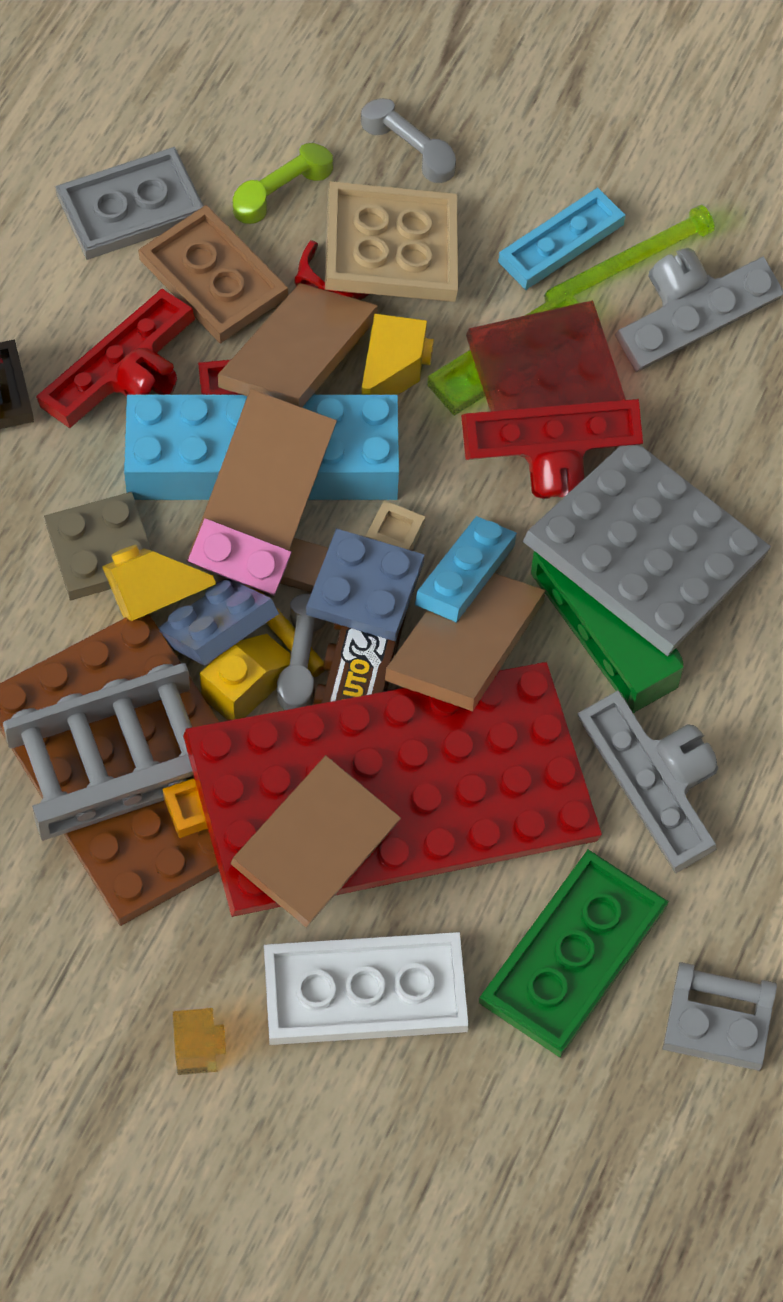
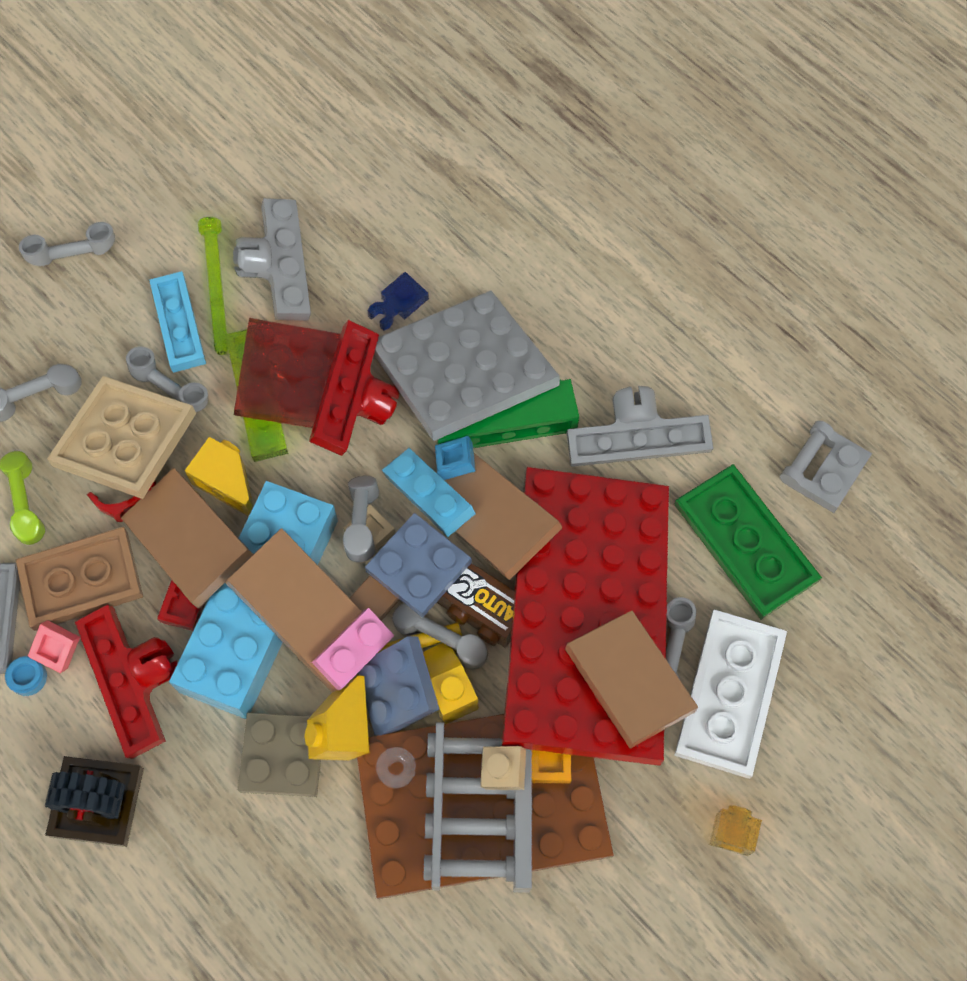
camera: 65 degrees left, 5 degrees up
(88, 273) = (25, 676): none -> dark azure tile
(125, 640) = (395, 755): none -> clear plate
(127, 281) = (53, 646): none -> coral plate
(159, 747) = (503, 768): none -> tan plate
(370, 512) = (357, 537): none -> light grey bar
(436, 904) = (680, 619): none -> light grey bar
(488, 232) = (143, 368): none -> light grey bar
(521, 581) = (455, 458): none -> dark azure tile
(578, 70) = (36, 251): none -> light grey bar
(711, 458) = (400, 298): none -> clear blue plate

